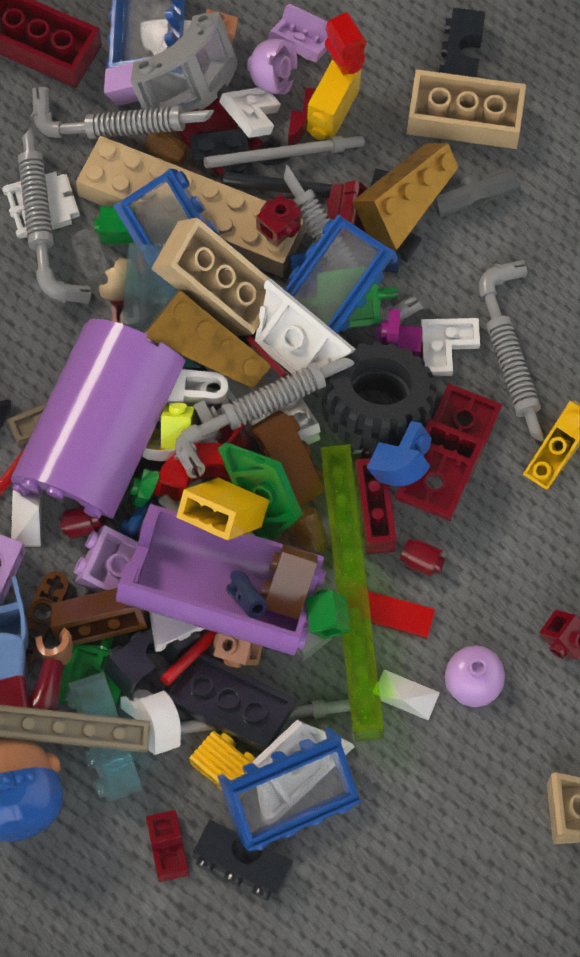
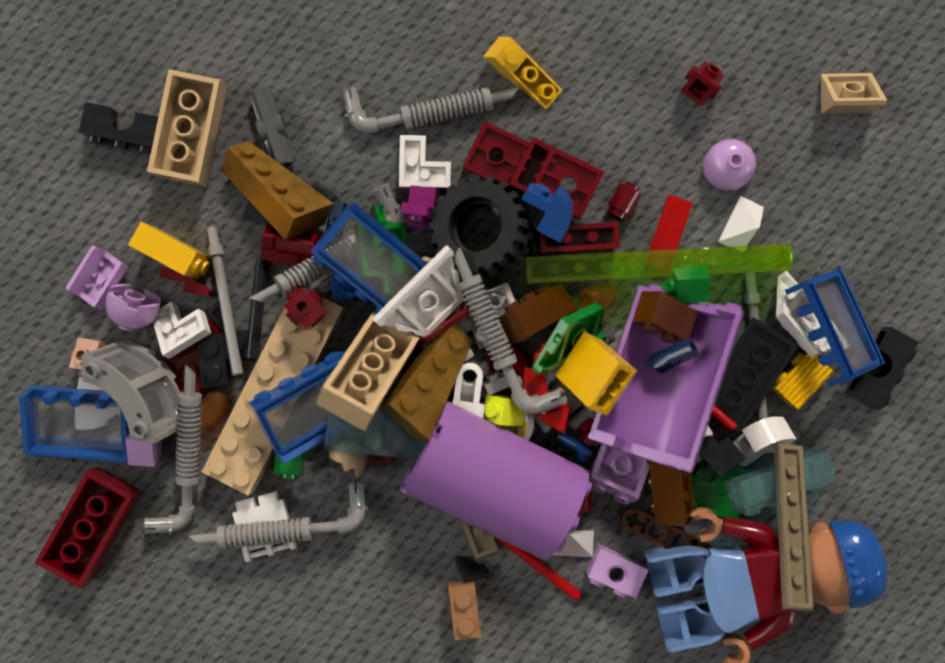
camera: 80 degrees left, 20 degrees up
(143, 487) = (558, 441): green plate -> none
(167, 846) = (863, 430): dark red slope -> none
(345, 43) = (127, 234): red brick -> none

